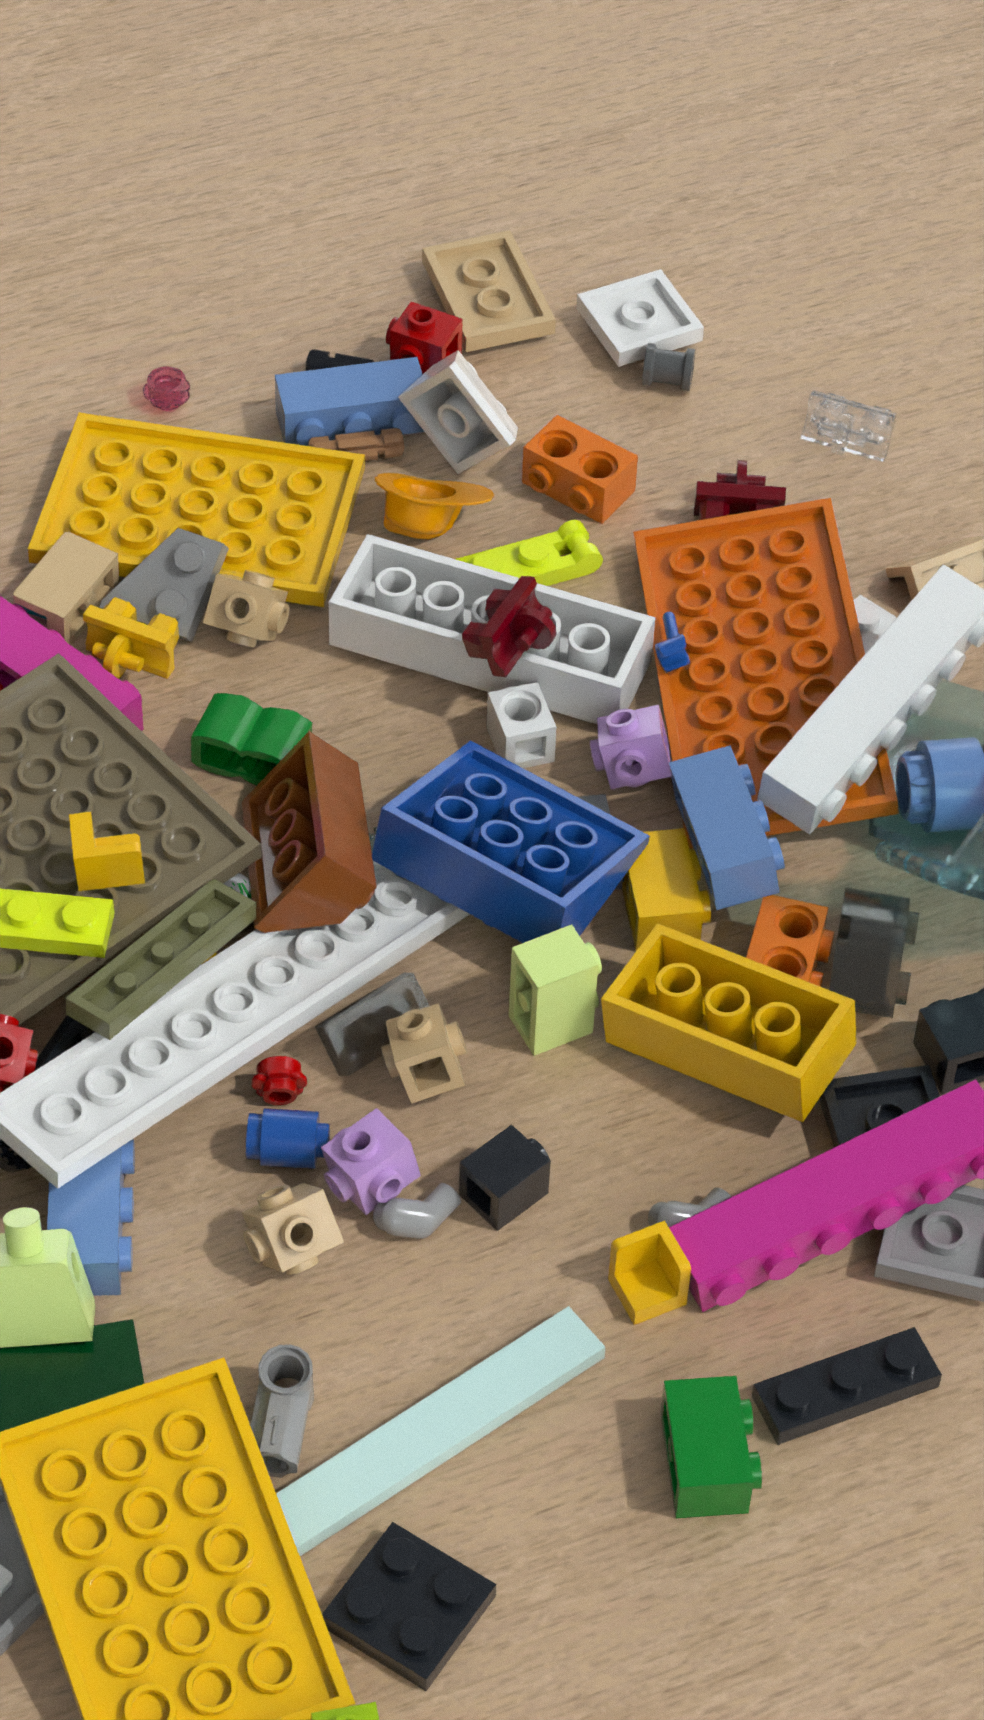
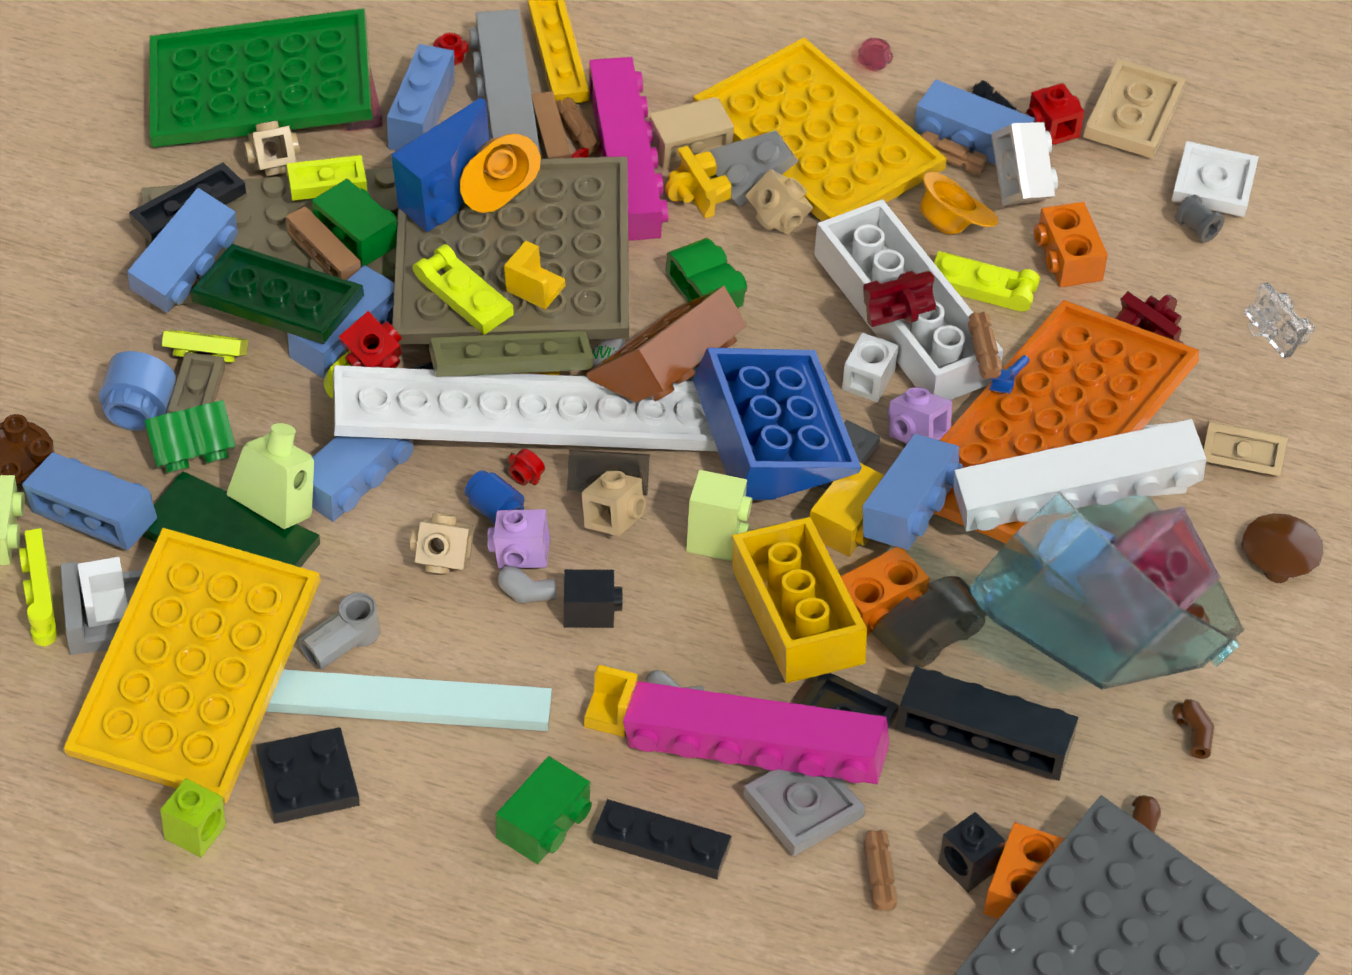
camera: 40 degrees right, 0 degrees up
(640, 623) = (984, 345): none -> medium nougat axle

